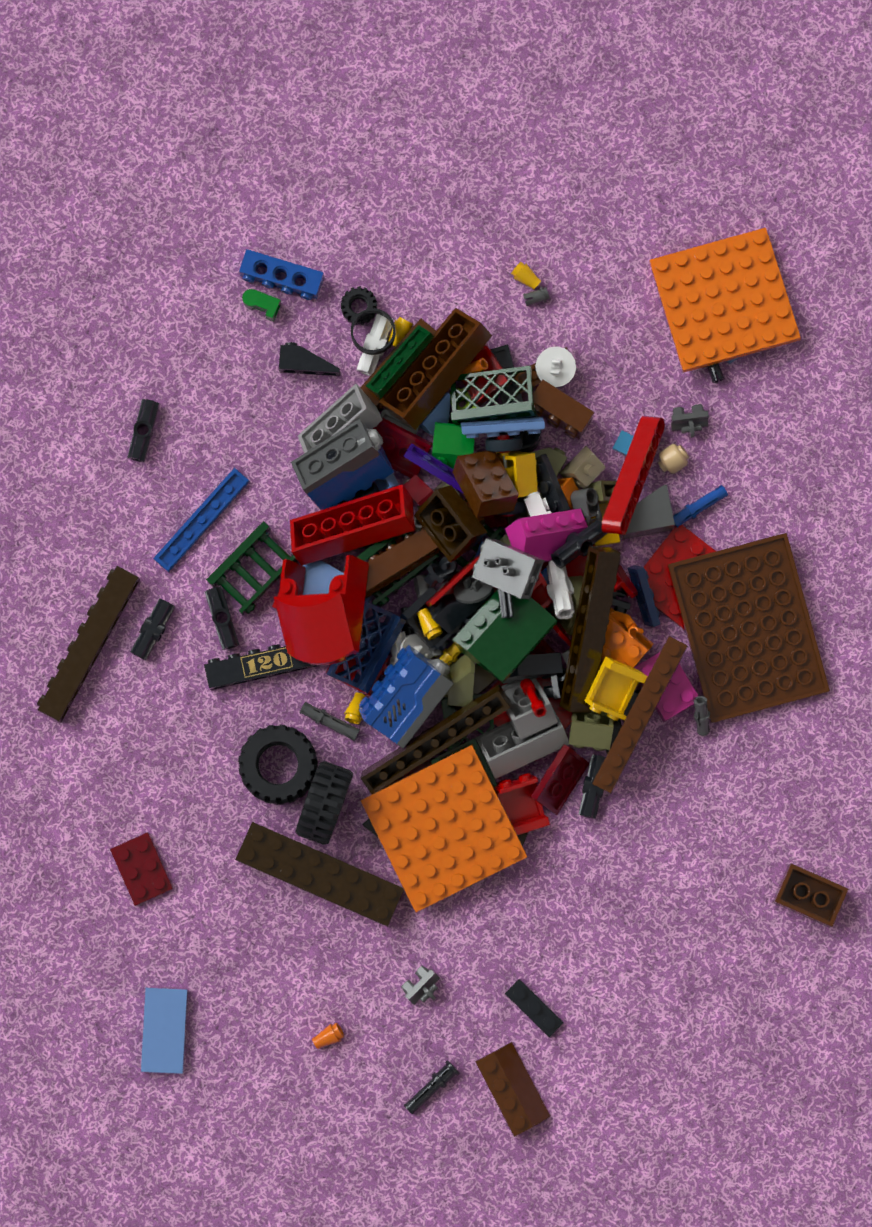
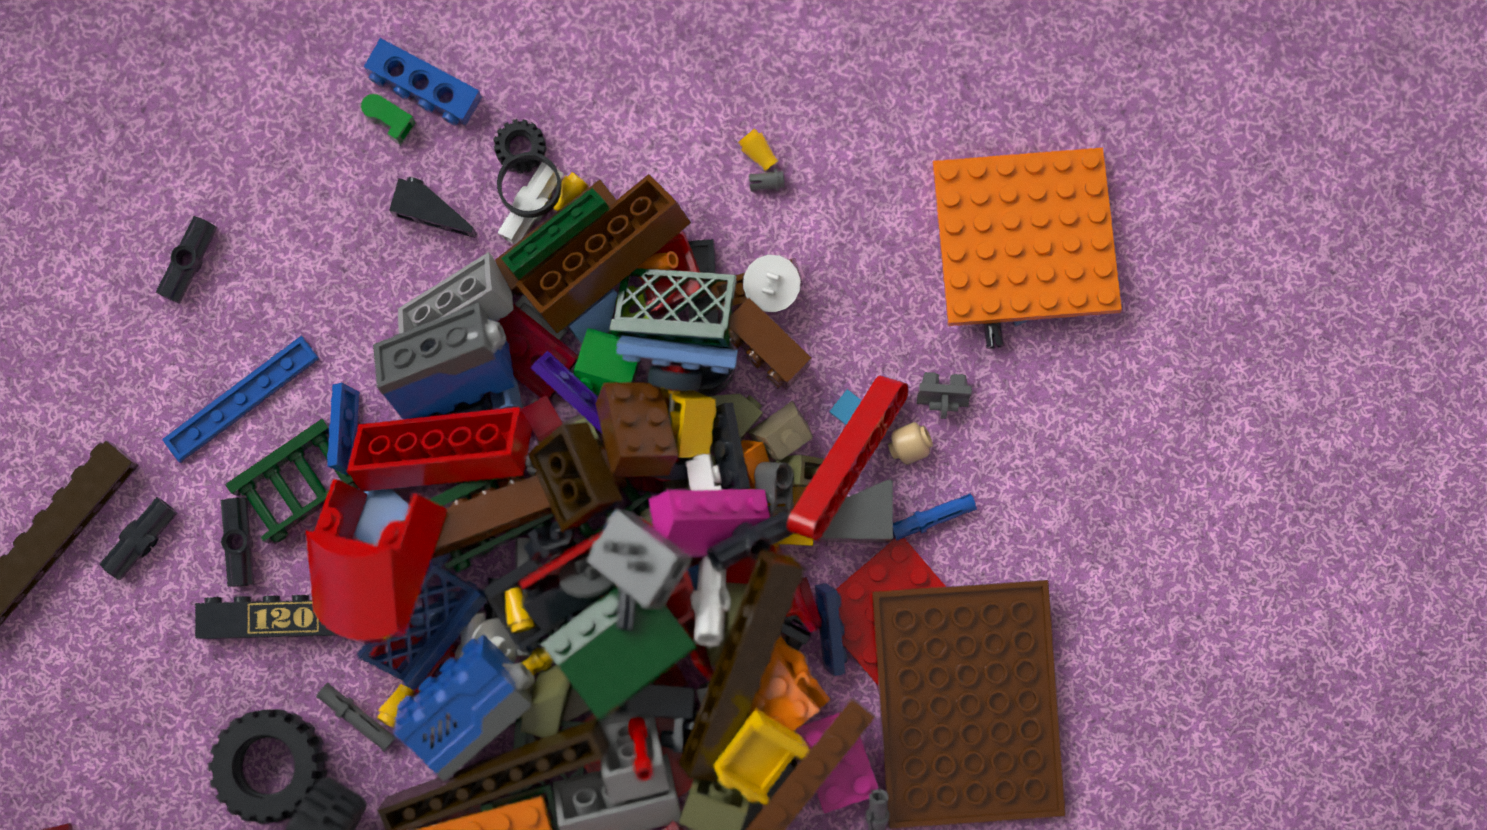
camera: 10 degrees right, 0 degrees up
(279, 525) = (342, 426): none -> blue plate

